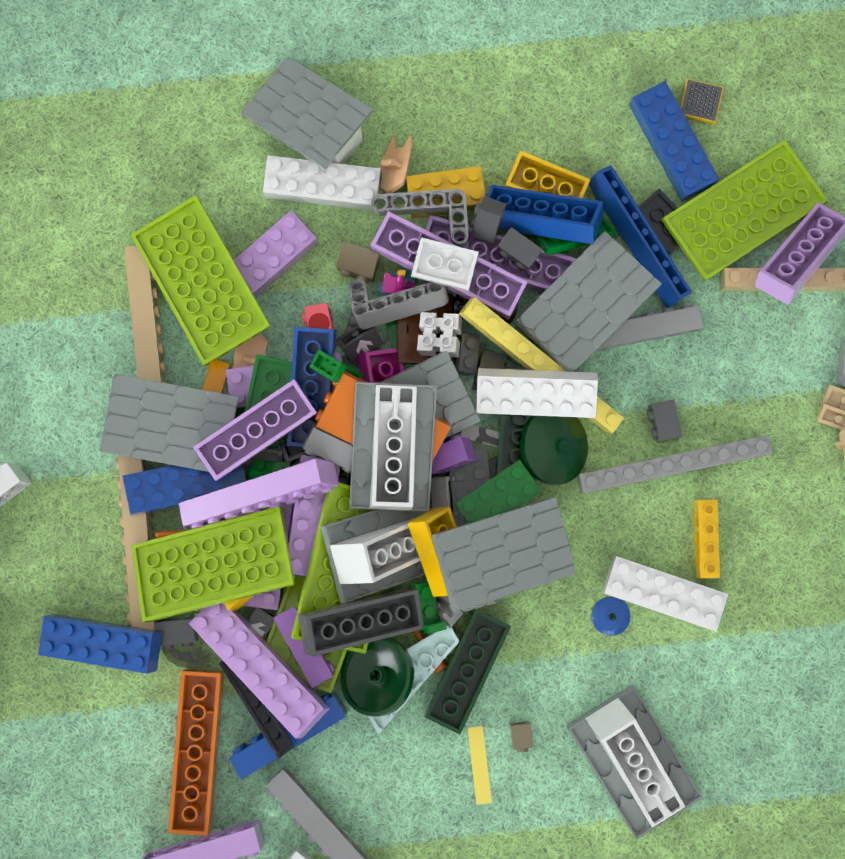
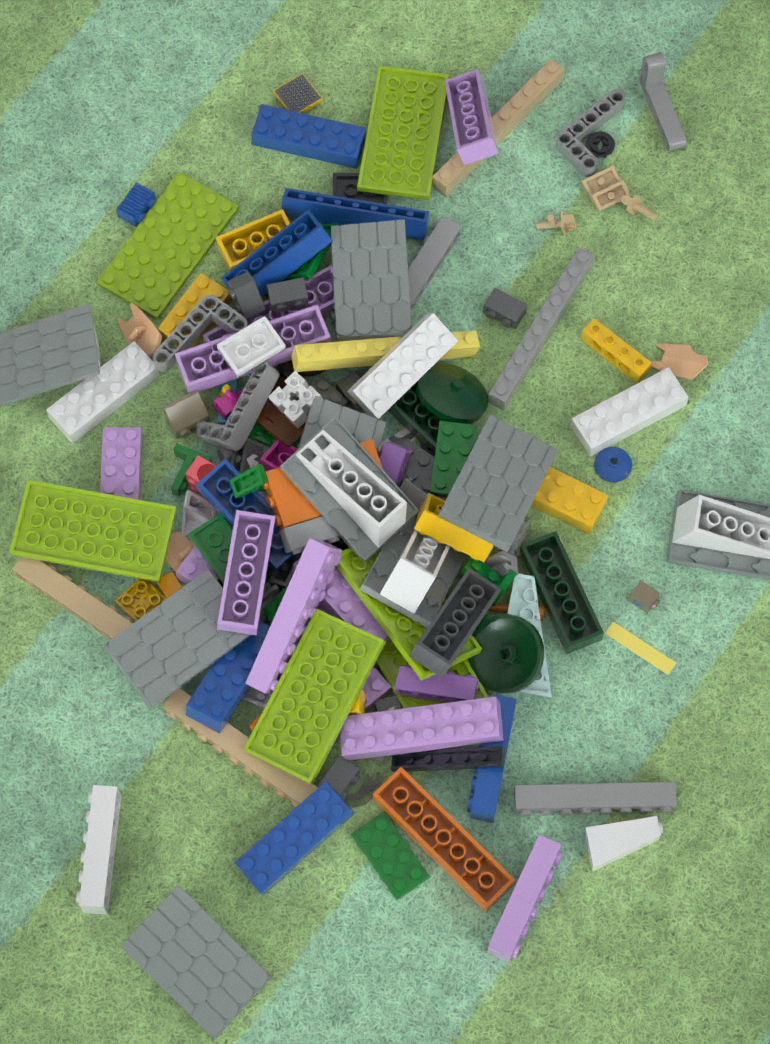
camera: 45 degrees left, 15 degrees down
(154, 720) = (390, 856): none -> green plate
(185, 364) = (139, 599): none -> yellow tile
(283, 339) = (195, 512): none -> white slope
(327, 297) = (188, 455): none -> green bracket
(486, 119) = (167, 245): none -> lime plate
(496, 65) = (136, 204): none -> blue brick
(550, 614) = (570, 500): none -> yellow brick
(743, 596) = (680, 360): none -> light nougat shield
(782, 405) = (566, 223): none -> tan arm

